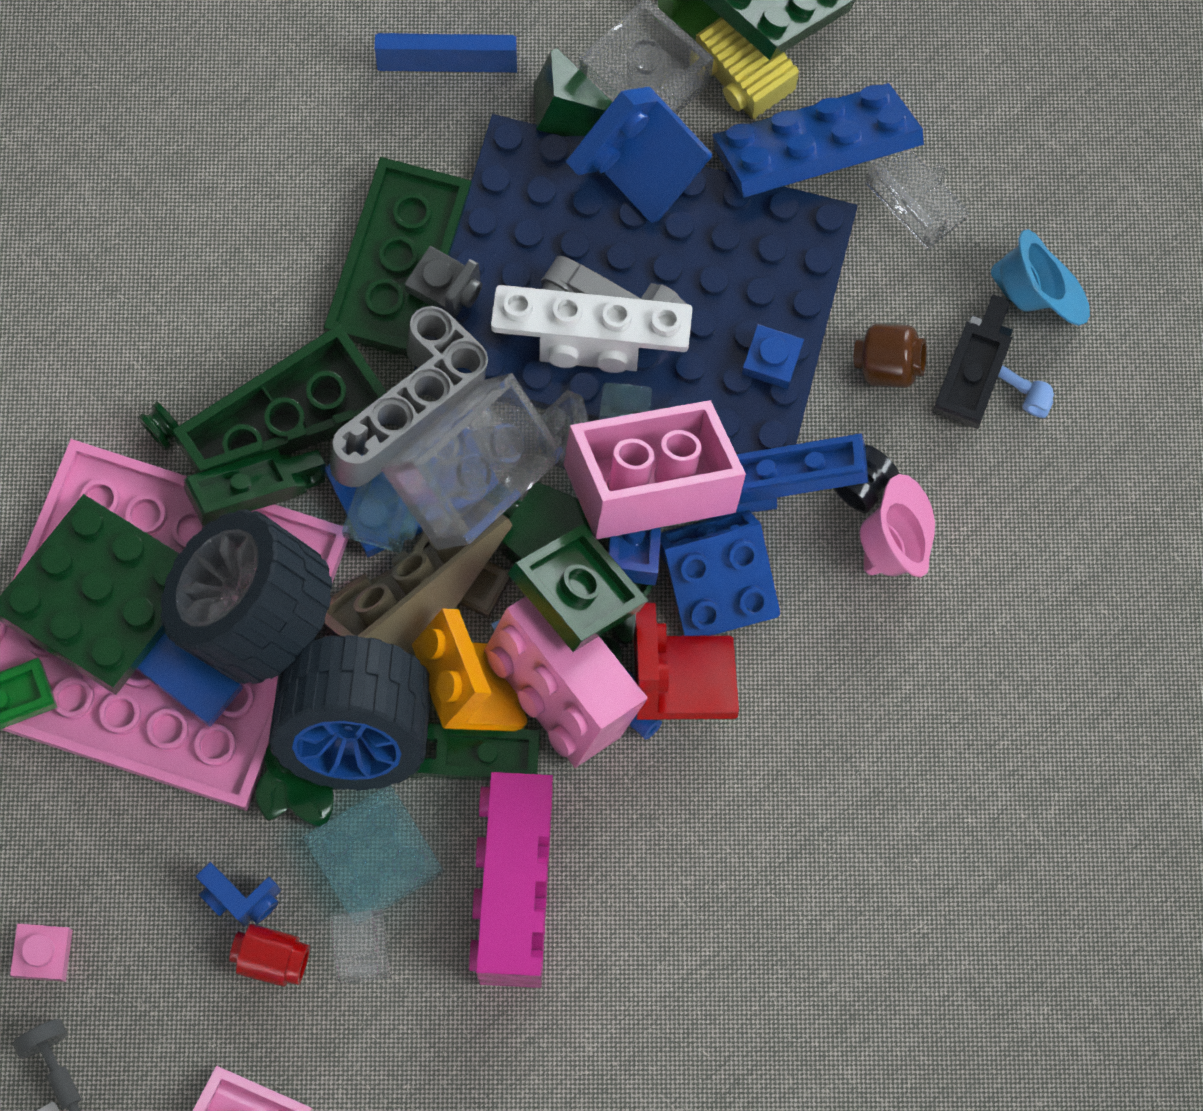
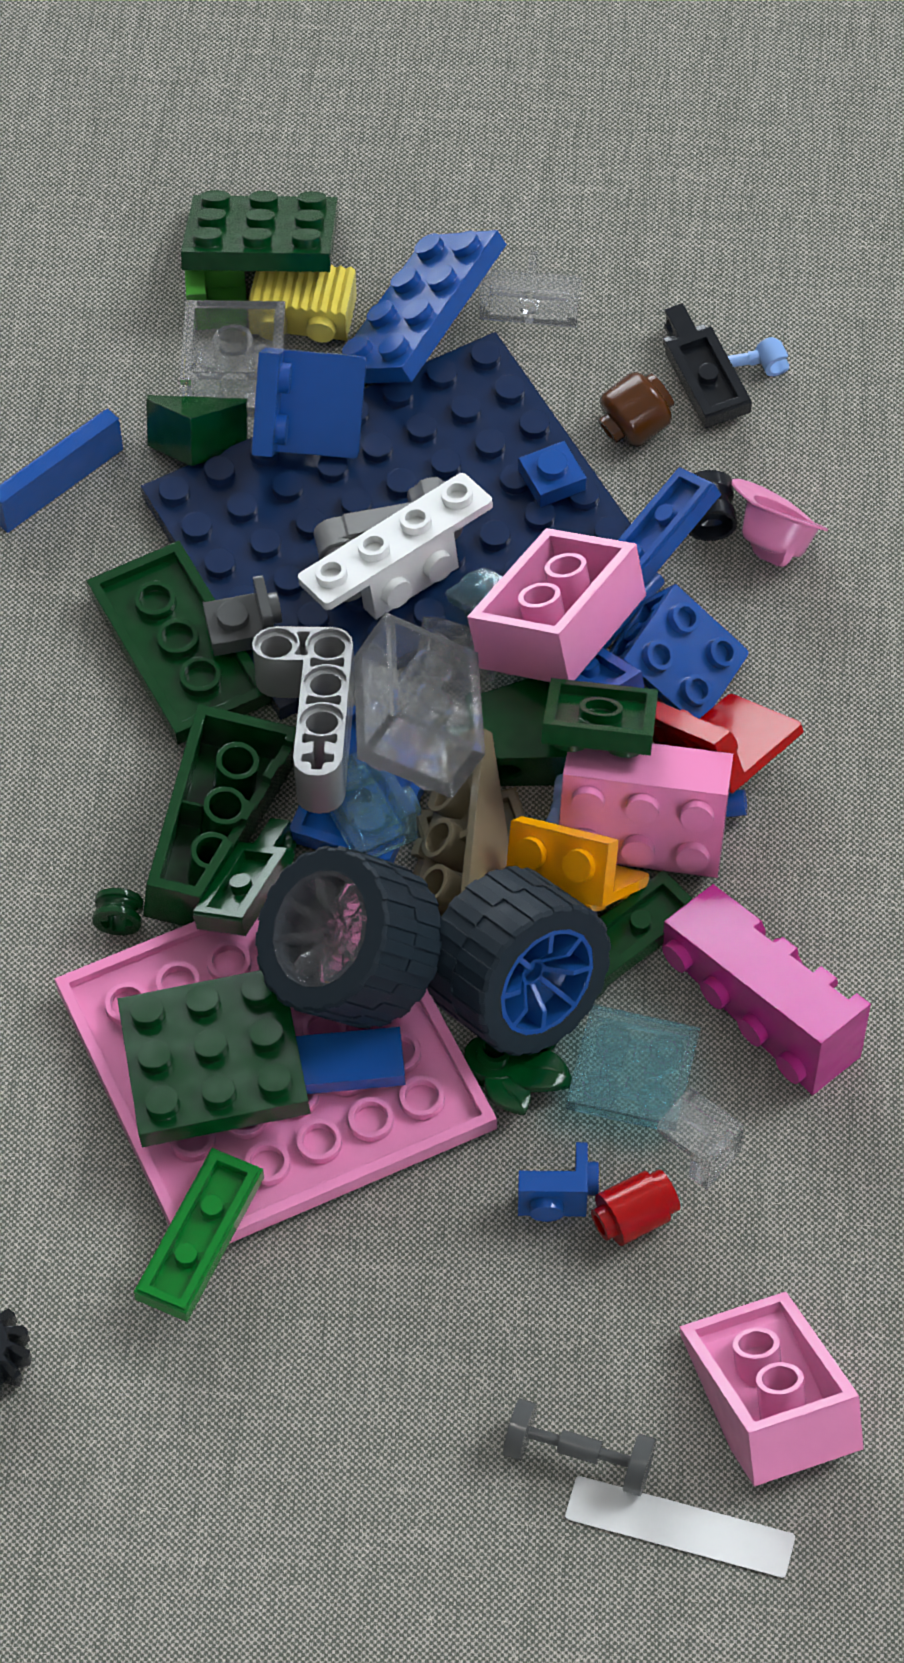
camera: 40 degrees left, 15 degrees down
(41, 952) = (446, 1374): bright pink plate -> none
(1040, 281) = (683, 279): dark azure piece -> none

